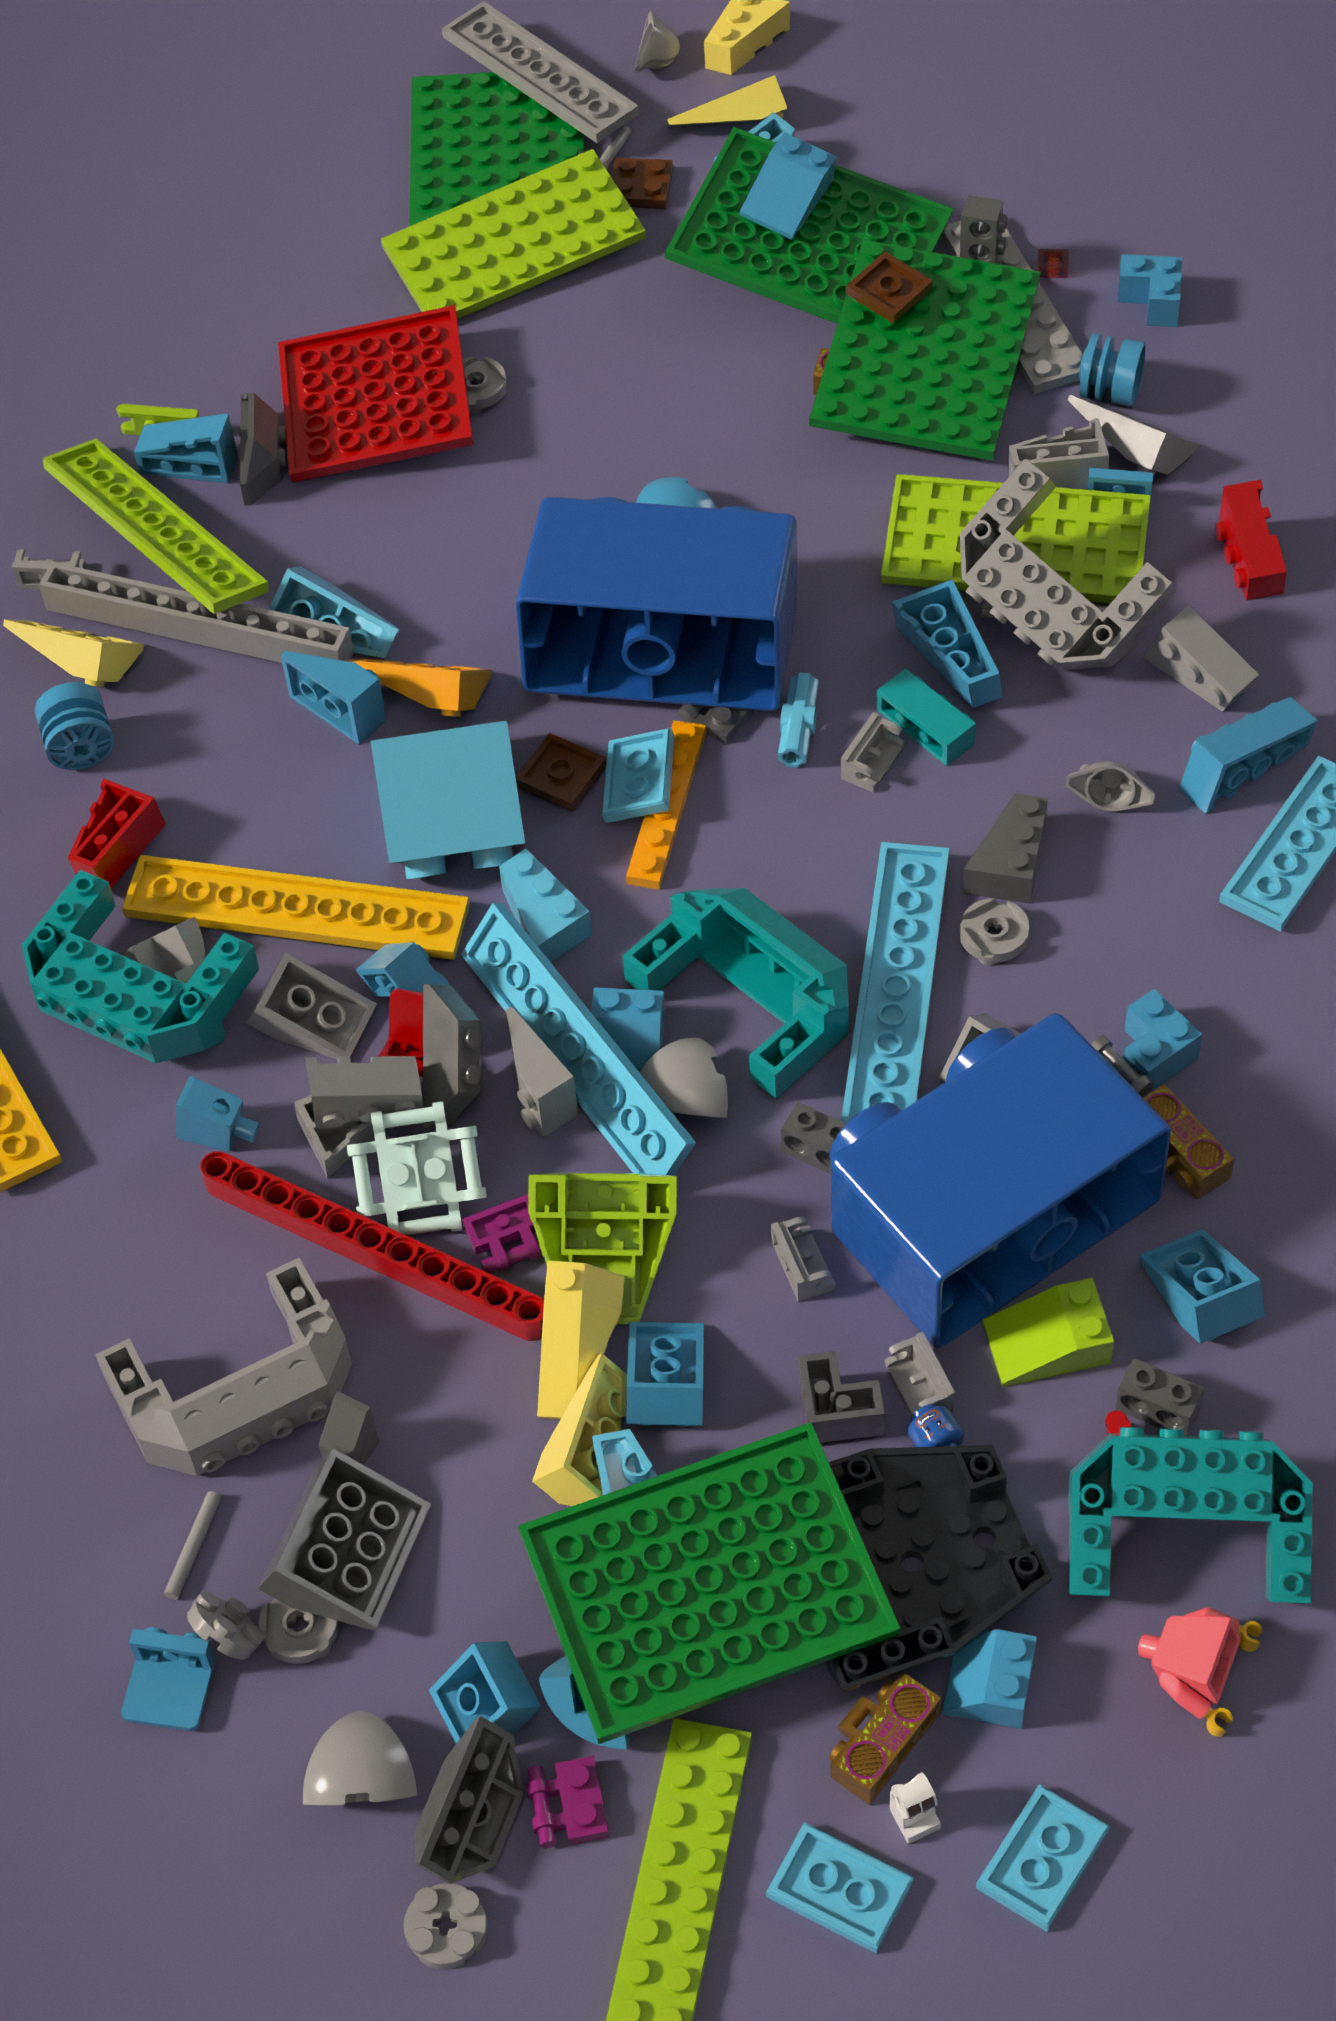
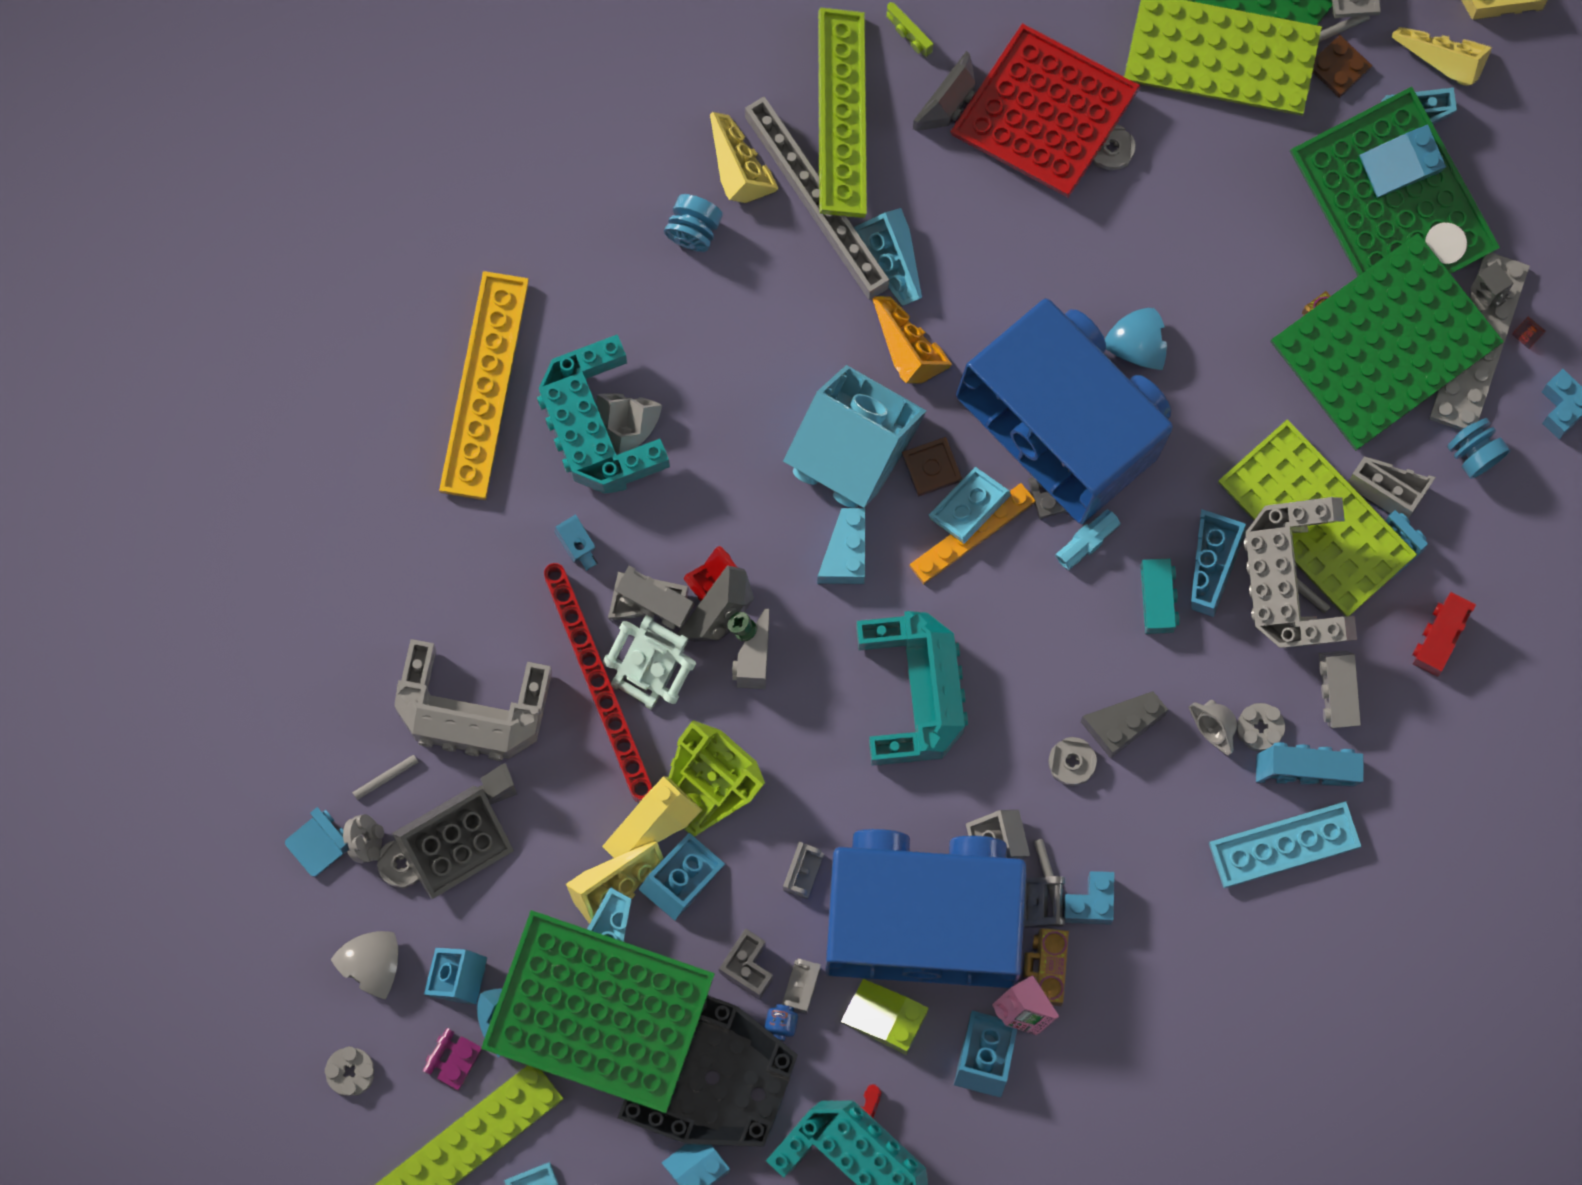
camera: 35 degrees right, 20 degrees up
(30, 572) = (761, 85): light grey hinge -> none
(116, 832) = (661, 314): red wedge -> none
(188, 449) = (906, 66): dark azure wedge -> none
(295, 906) = (722, 439): yellow plate -> none
(310, 1010) = (678, 514): light grey slope -> none
(336, 692) = (852, 319): dark azure slope -> none
(399, 967) = (737, 532): dark azure brick -> none
(470, 1805) = (402, 1026): dark grey wedge -> none
(497, 1041) = (742, 626): none -> dark green wheel
(500, 1226) = (668, 724): magenta plate -> none
(604, 1078) = (791, 653): medium azure plate -> none
(632, 1020) = (827, 662): dark azure slope -> none
(687, 1078) = (827, 719): light grey brick -> none
(809, 1136) = (868, 808): dark grey brick -> none
(872, 753) = (1108, 595): light grey hinge -> none
(889, 287) = (1395, 286): reddish brown plate -> none
(896, 978) = (989, 753): medium azure plate -> none
(896, 1727) = (623, 1155): pearl gold piece -> none
(898, 231) = (1447, 242): none -> white sticker
(1136, 440) = (1451, 509): wedge -> none
(1159, 1397) = (906, 1096): dark grey brick -> none
(1161, 743) = (1251, 736): none -> light grey plate
(1201, 1193) = (1025, 1007): none -> bright pink slope

